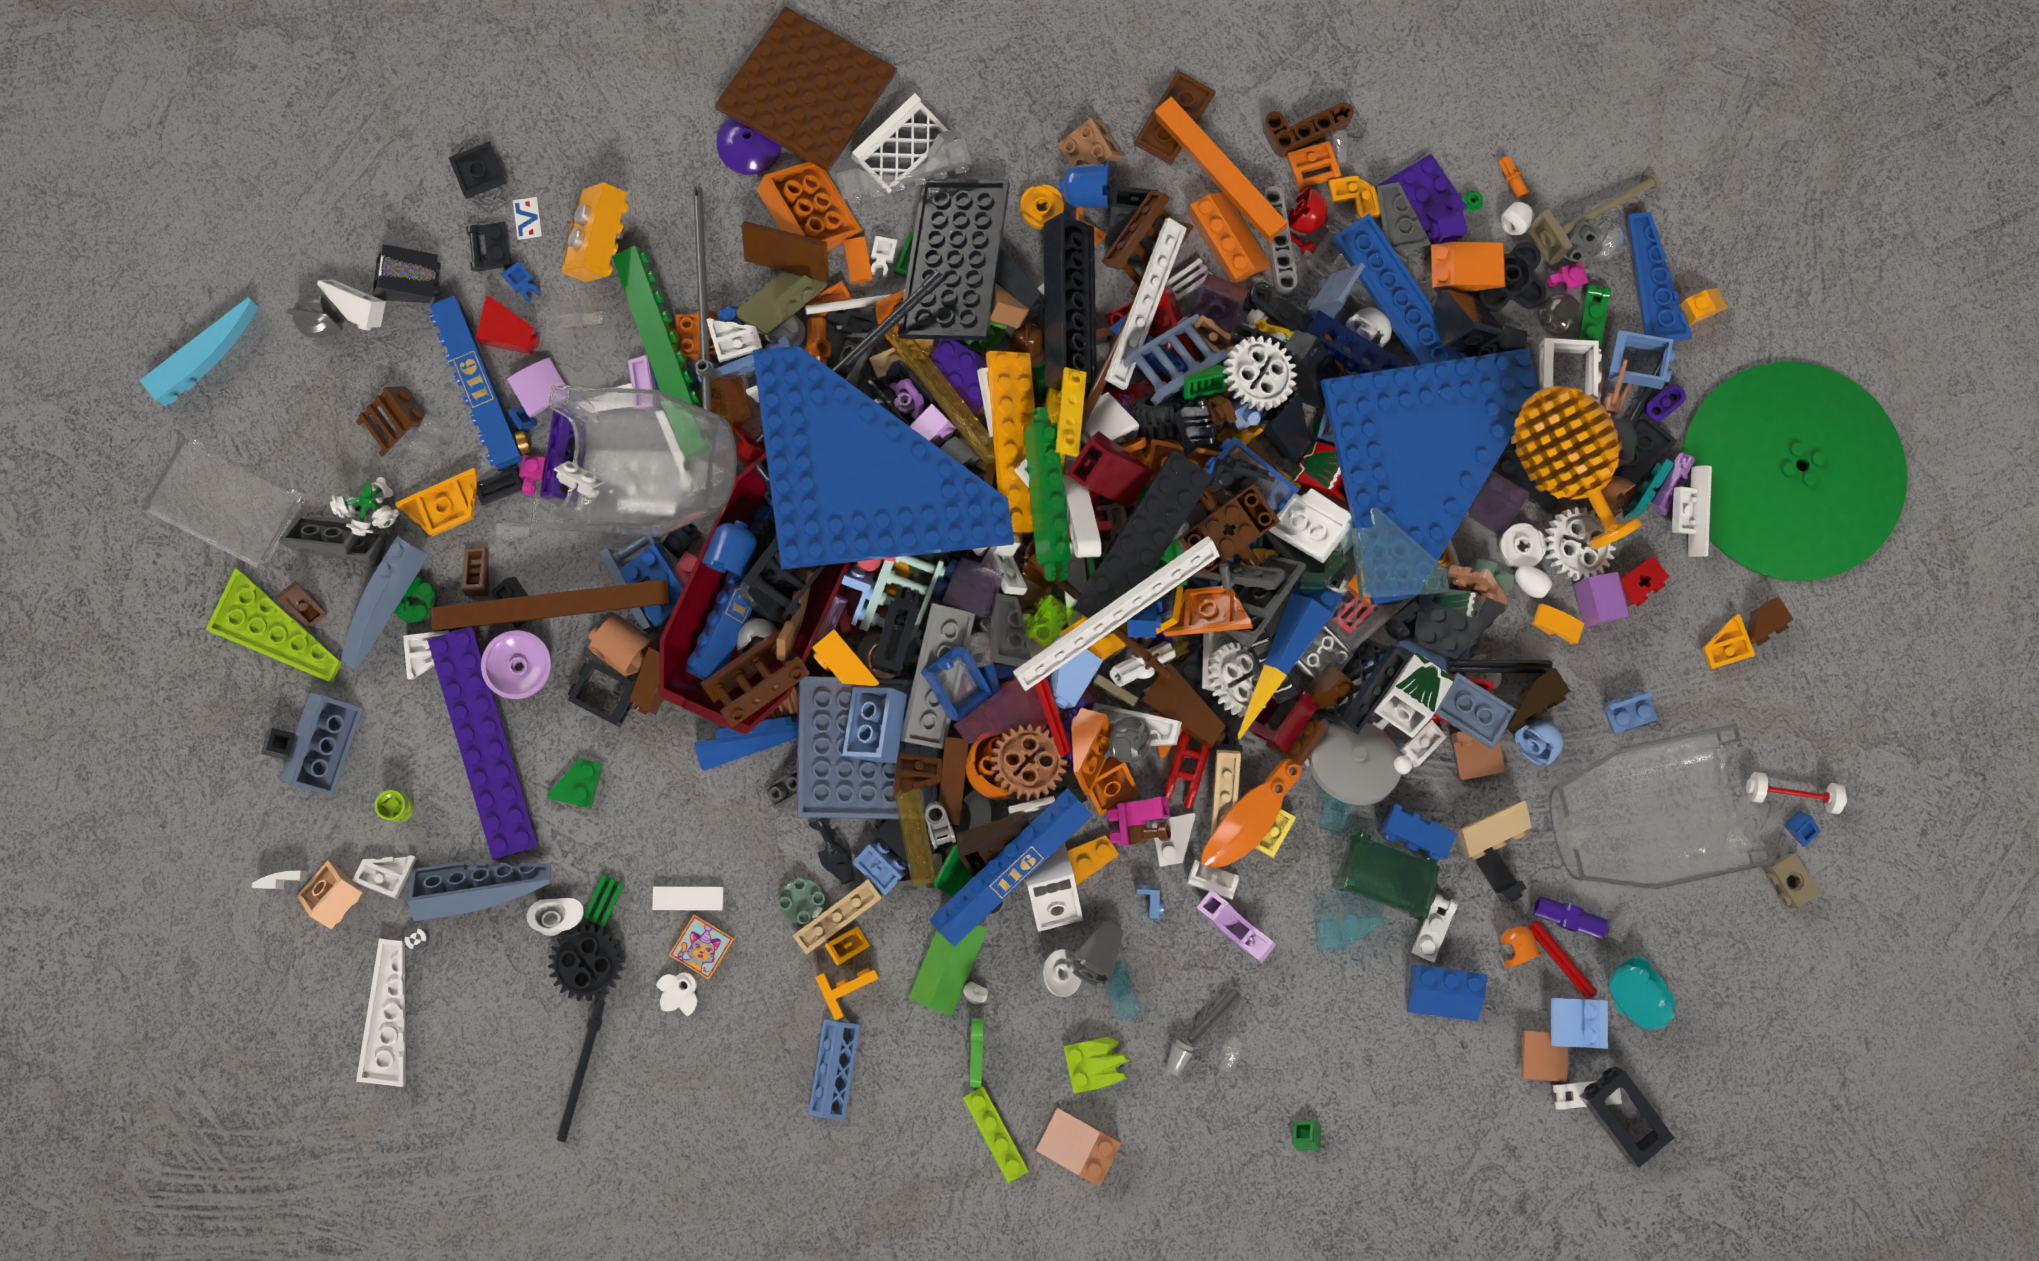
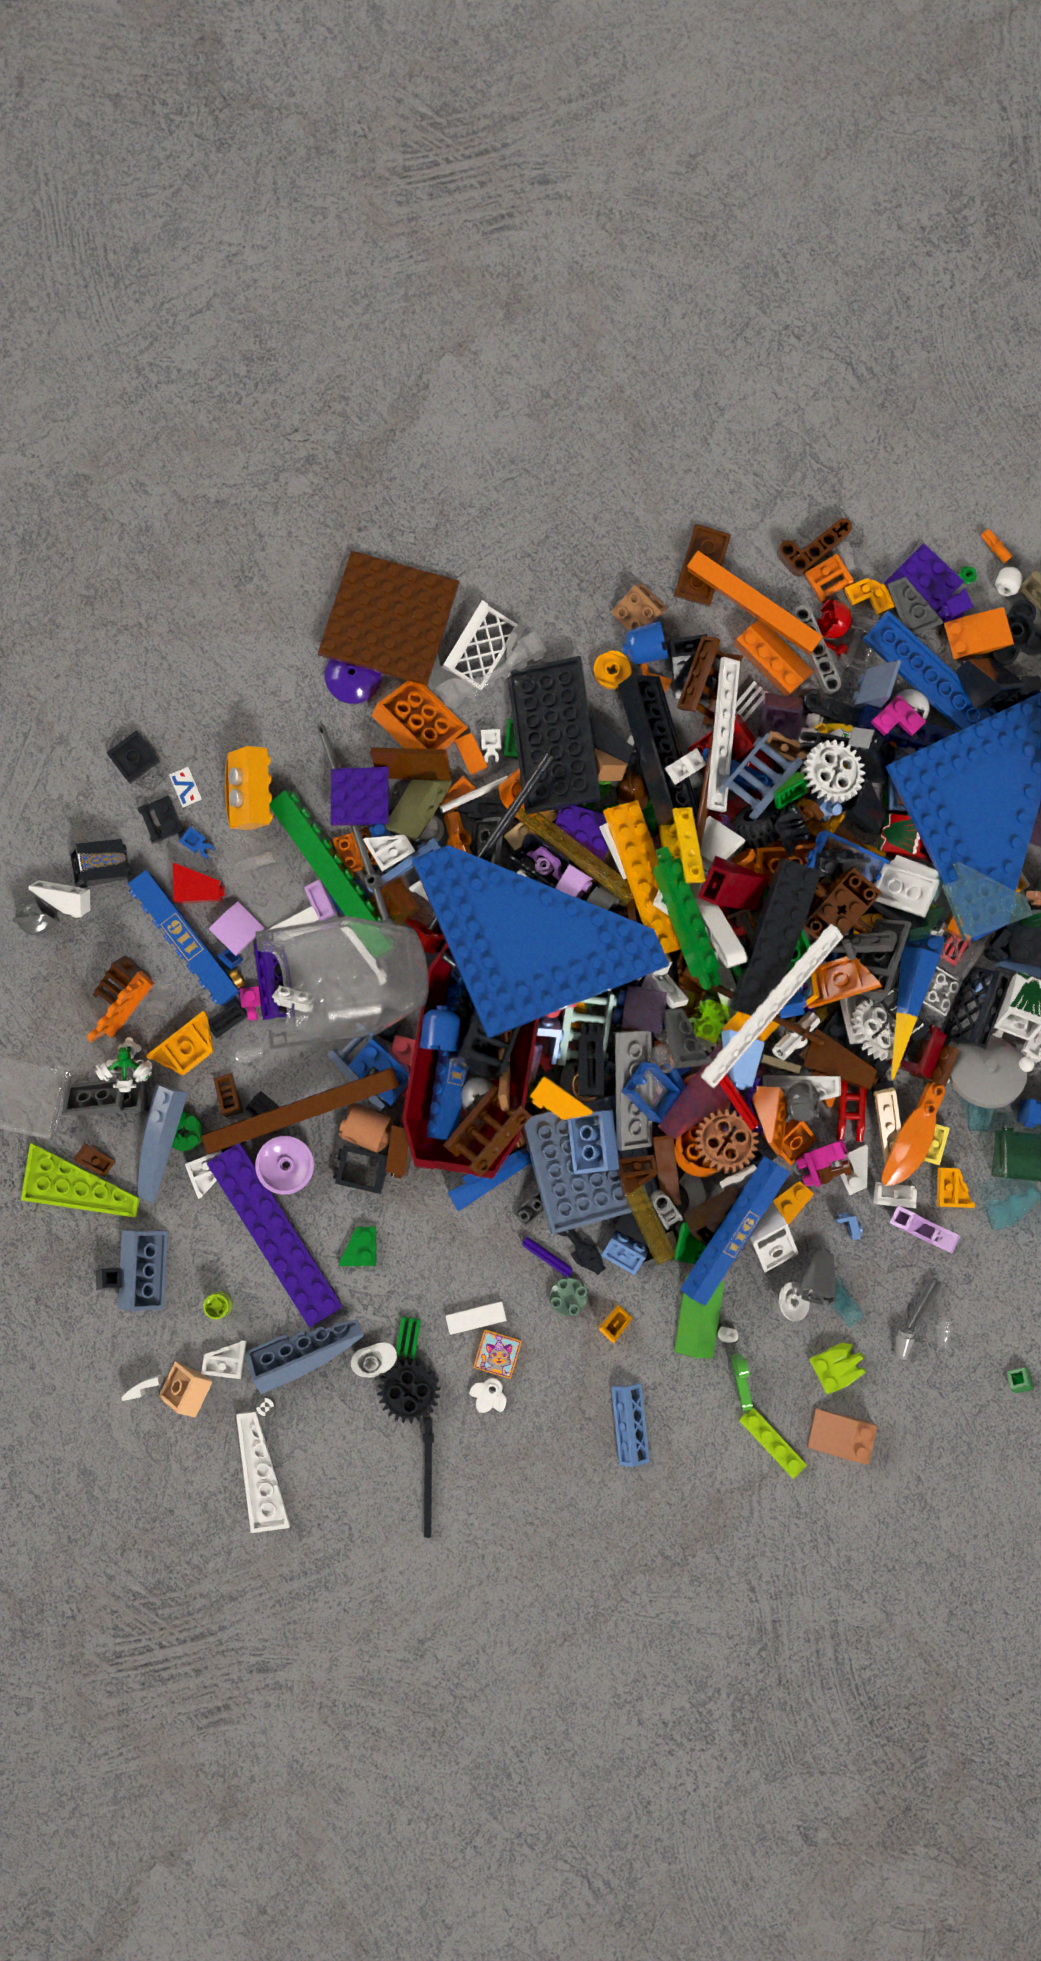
camera: 10 degrees left, 5 degrees up
(381, 439) = (123, 1007): none -> orange fence
(717, 272) = (359, 796): none -> dark purple plate
(789, 848) = (547, 1257): none -> dark purple axle
(837, 917) = (601, 1302): tan gear -> none
(843, 987) = (622, 1358): light orange bracket -> none
(1094, 328) = (685, 766): none -> white slope
(1281, 890) = (952, 1189): none -> light orange wing
(1330, 687) = (951, 1015): reddish brown slope -> none
(1352, 328) = (898, 712): none -> dark pink plate

